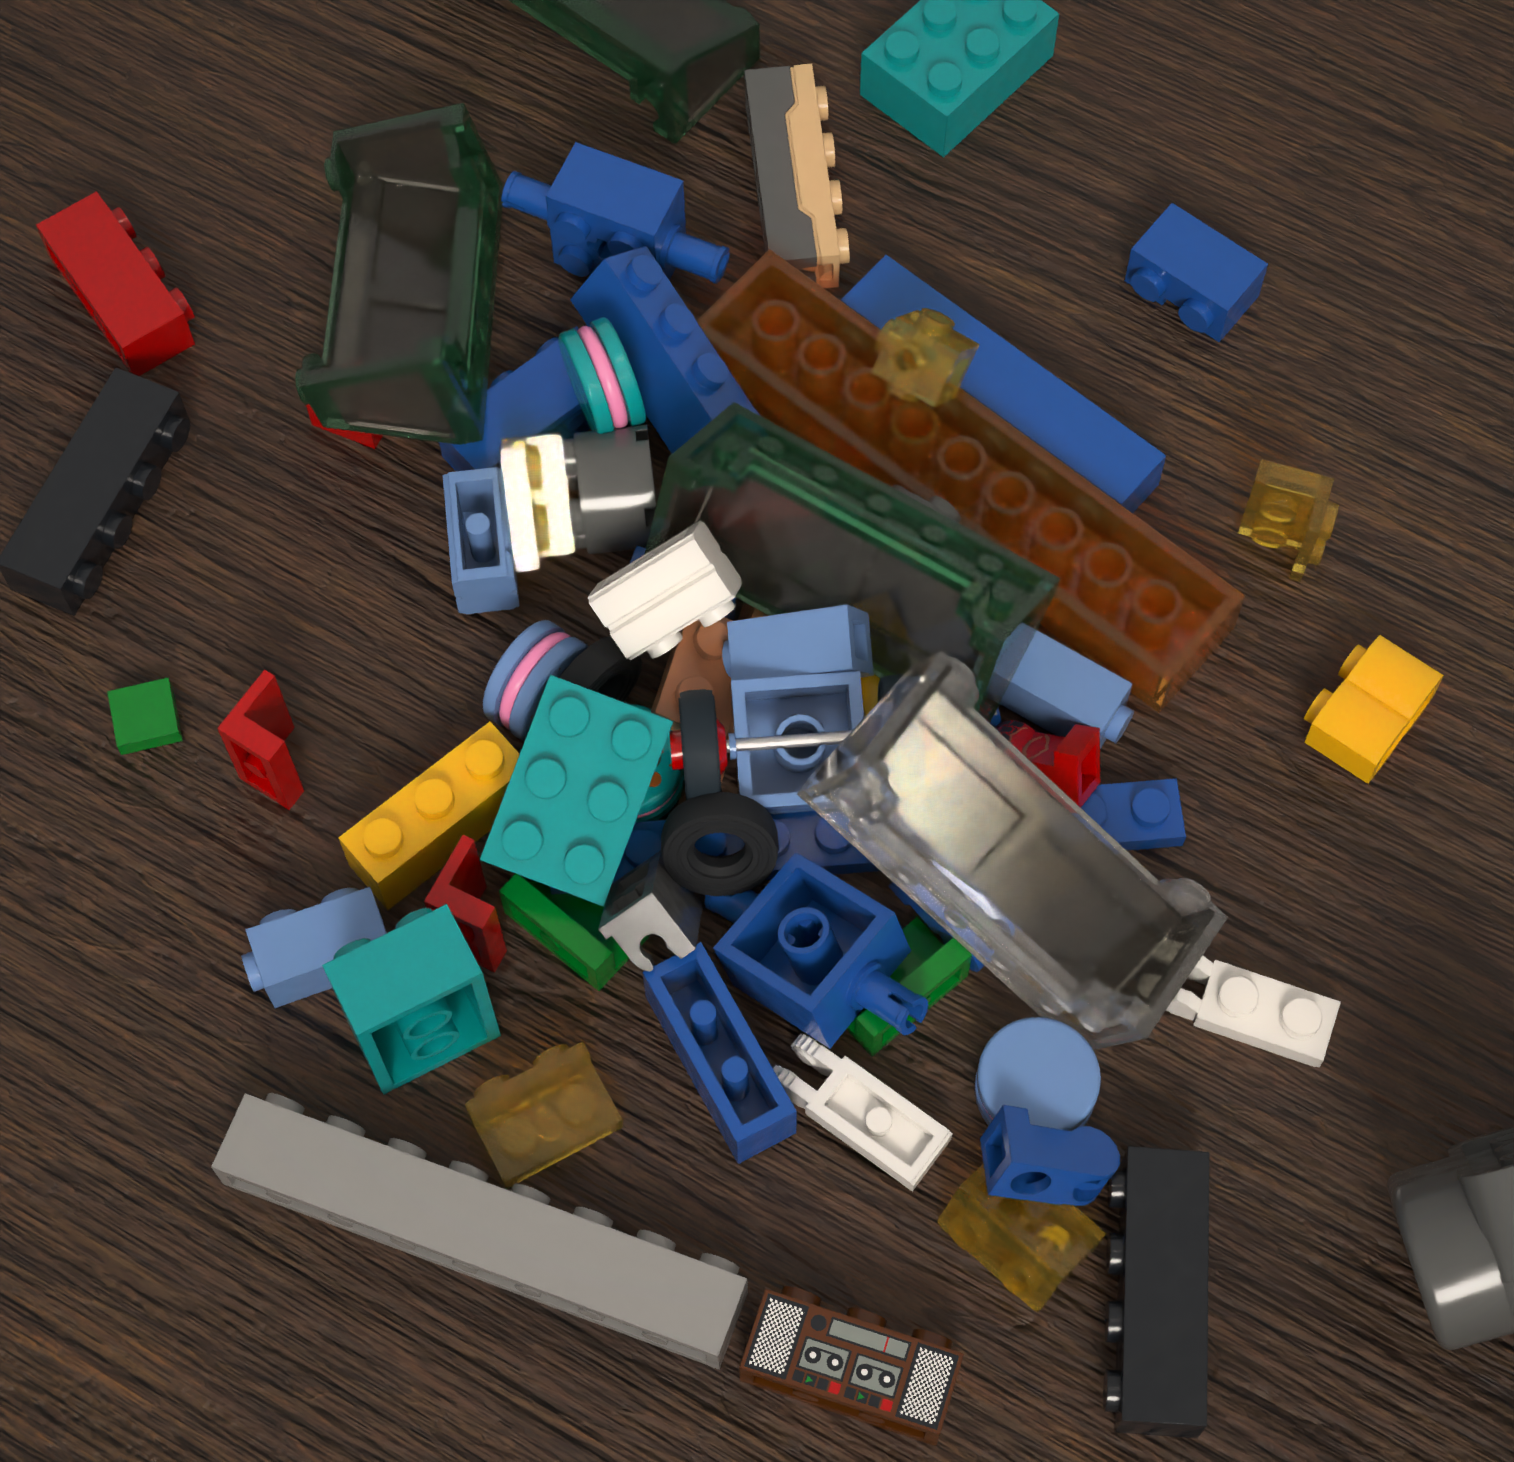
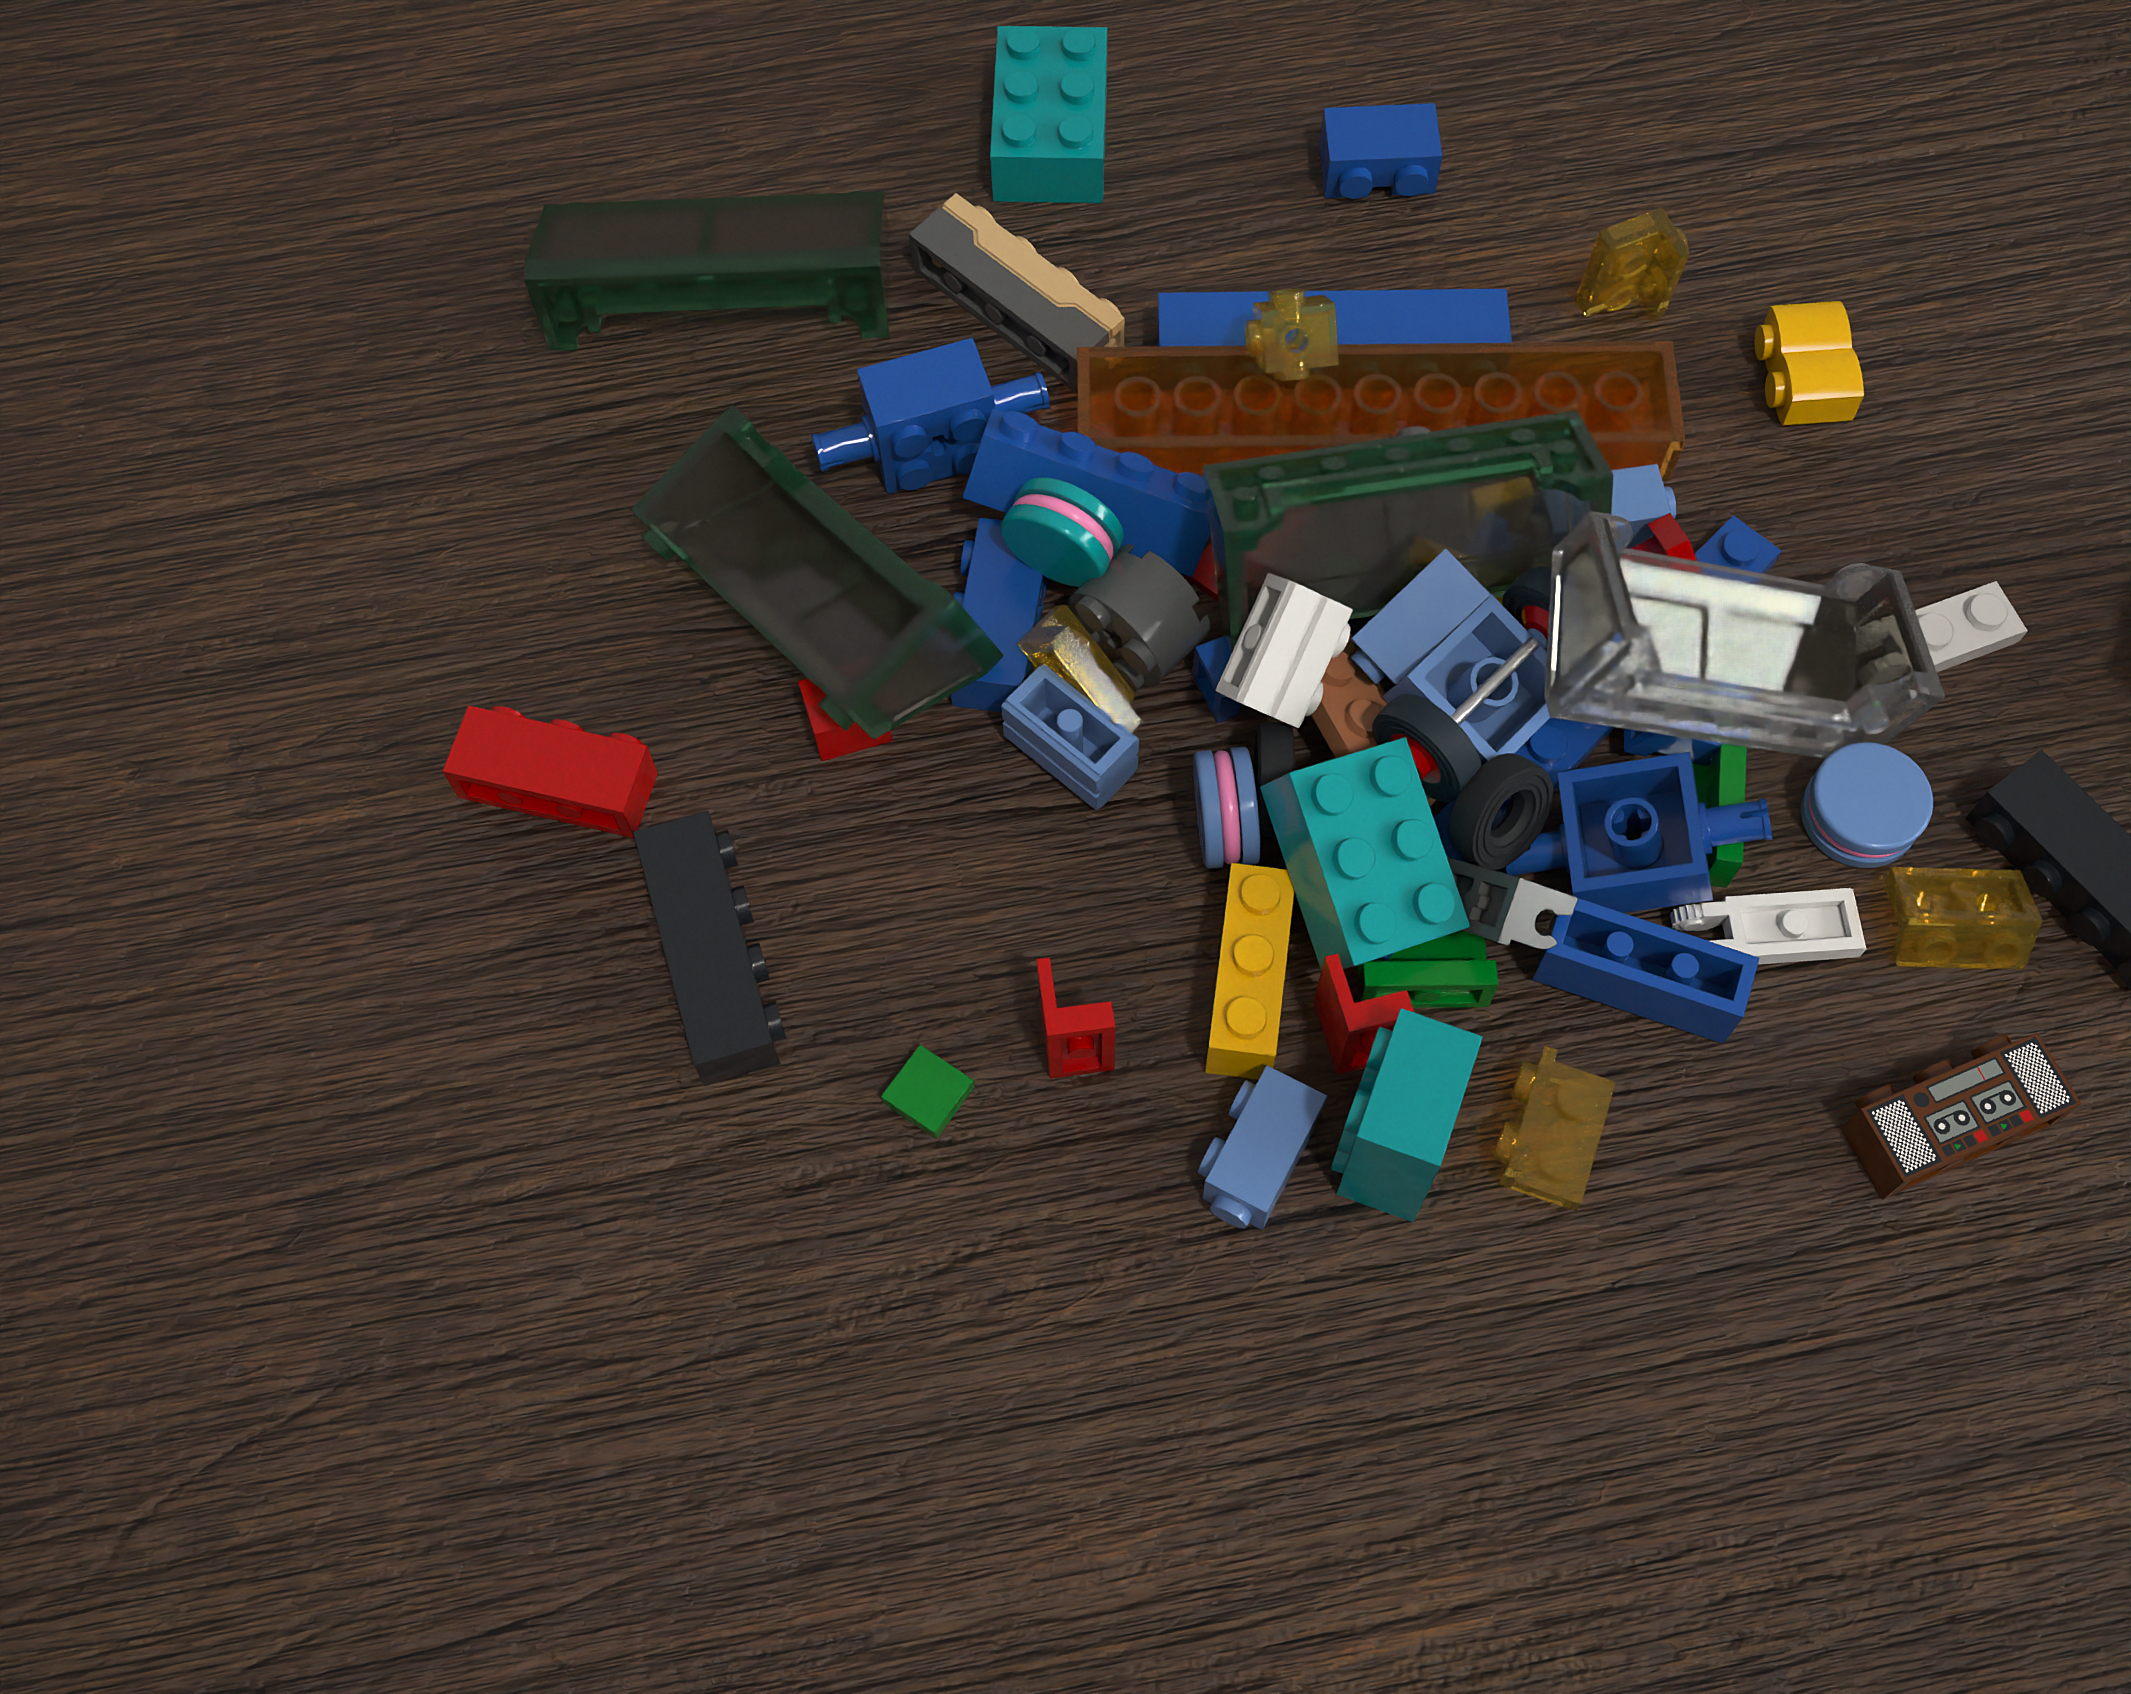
camera: 40 degrees left, 0 degrees up
(483, 1229) = (1601, 1253): light grey brick -> none
(1044, 1161) = (1941, 854): blue leg -> none

